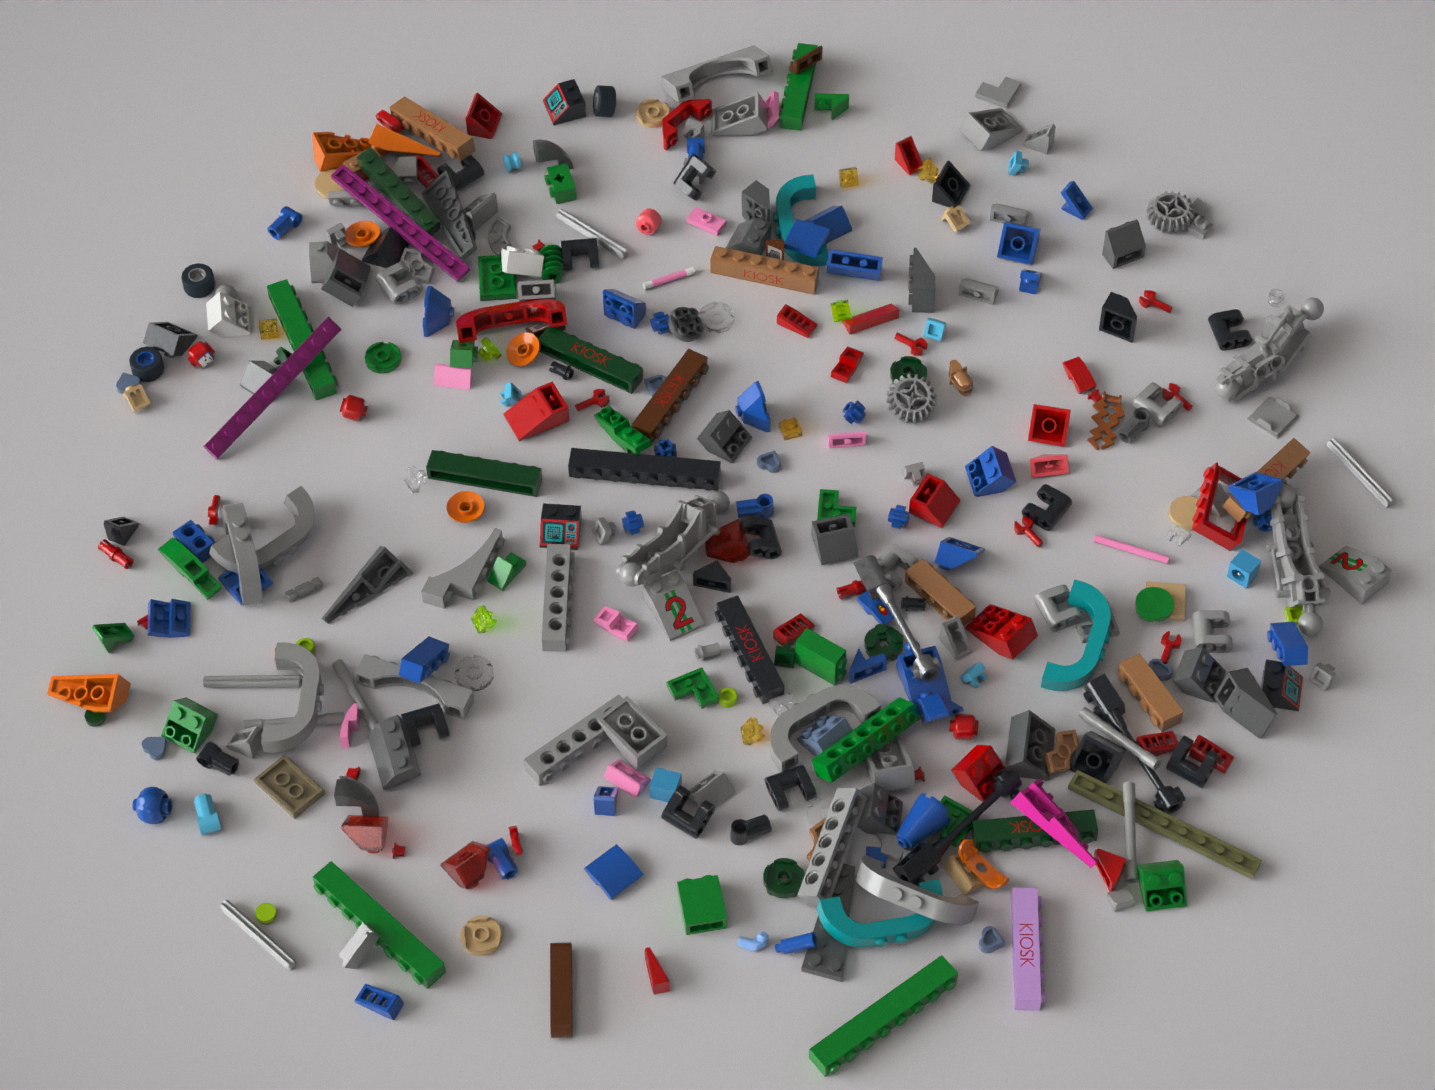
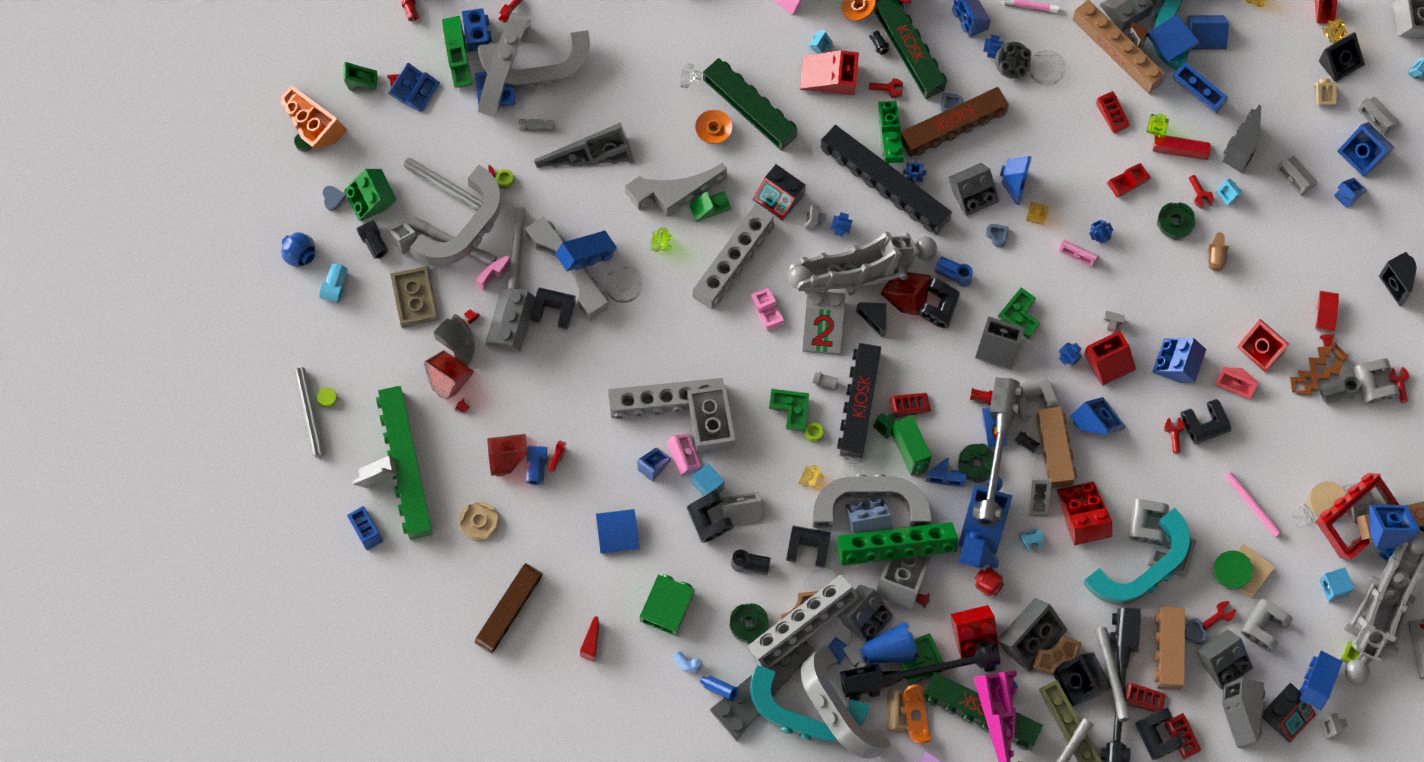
camera: 30 degrees right, 15 degrees up
(894, 395) = (1165, 253): light grey gear -> none

